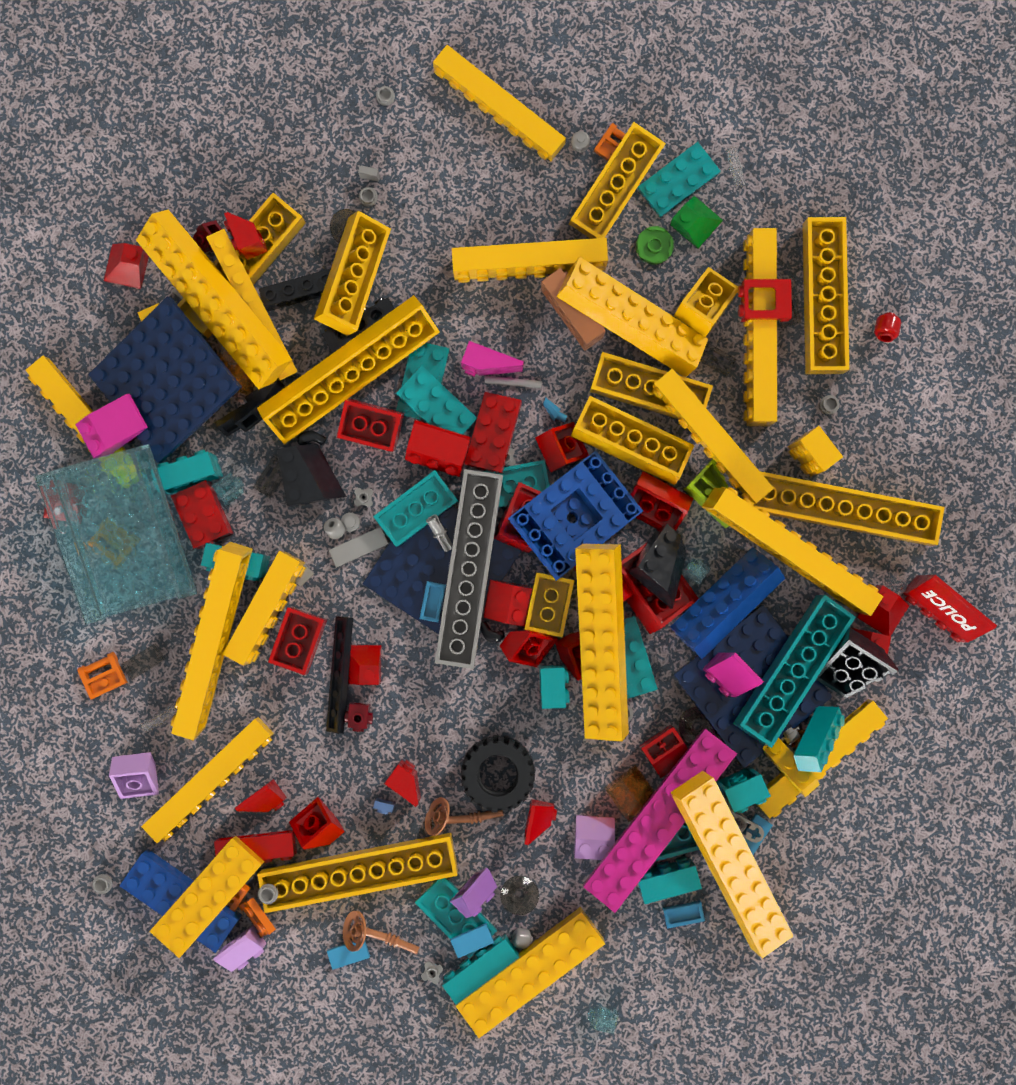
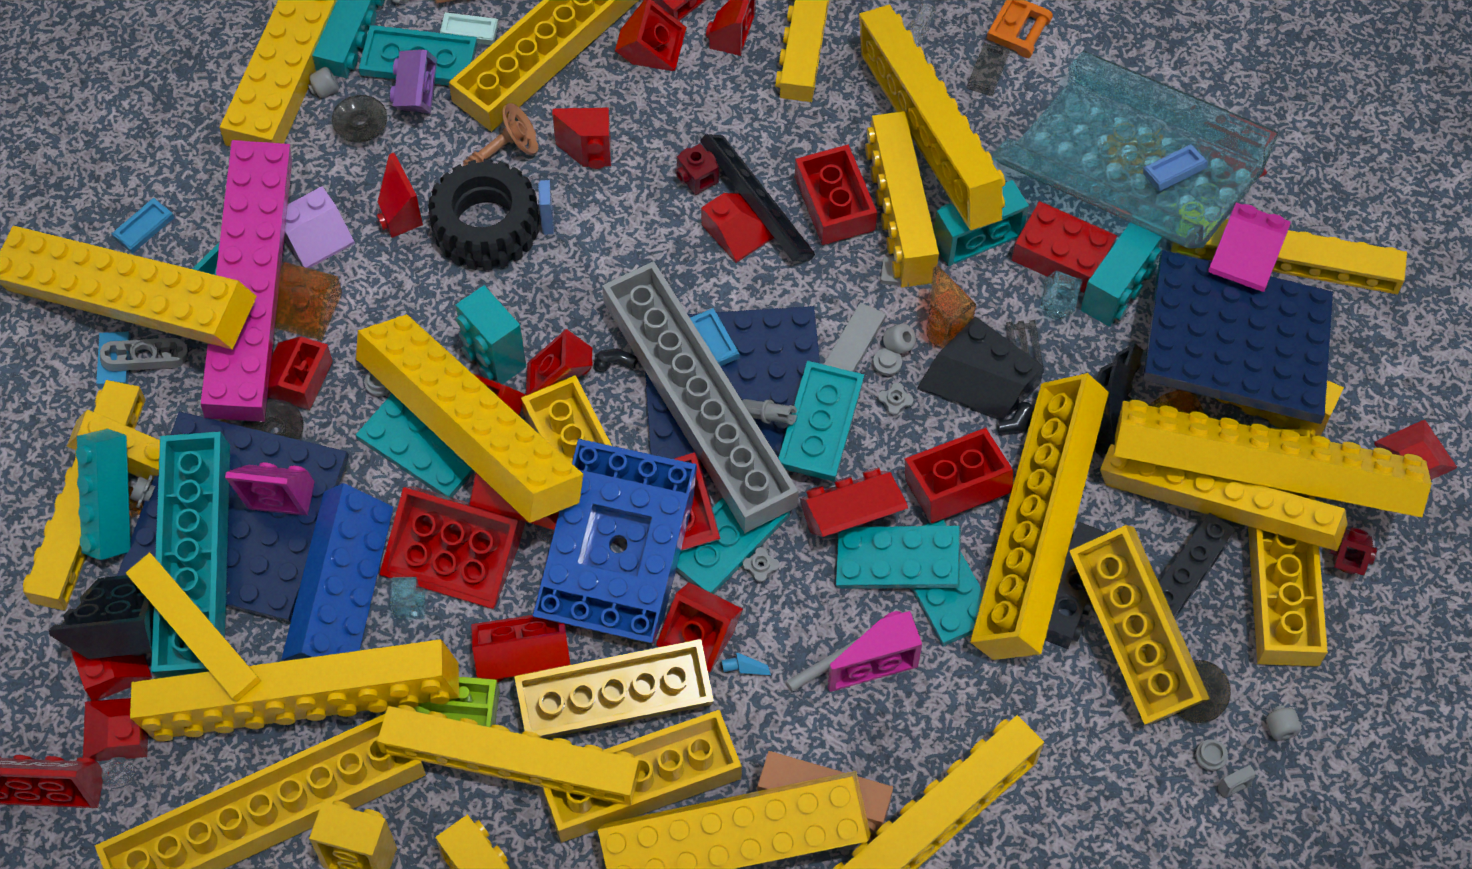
camera: 140 degrees right, 25 degrees down
(106, 505) = (1175, 167): none -> medium blue tile
(245, 236) = (1306, 559): red slope -> none
(298, 522) = (948, 309): none -> clear orange slope
(321, 183) = (1283, 723): none -> light grey piece
(384, 806) = (592, 100): medium blue plate -> none
(412, 915) = (473, 26): none -> light aqua tile
(461, 751) = (546, 207): none -> medium blue tile
(472, 940) = (380, 40): dark azure tile -> none
(493, 432) = (801, 580): red plate -> none
(507, 602) = (621, 398): red slope -> none
(603, 1019) = (165, 64): clear light blue brick -> none
(661, 564) = (459, 567): black wedge -> none
(669, 880) = (188, 230): teal brick -> none
(743, 789) = (164, 380): teal brick -> none
(825, 620) = (193, 627): none -> yellow tile

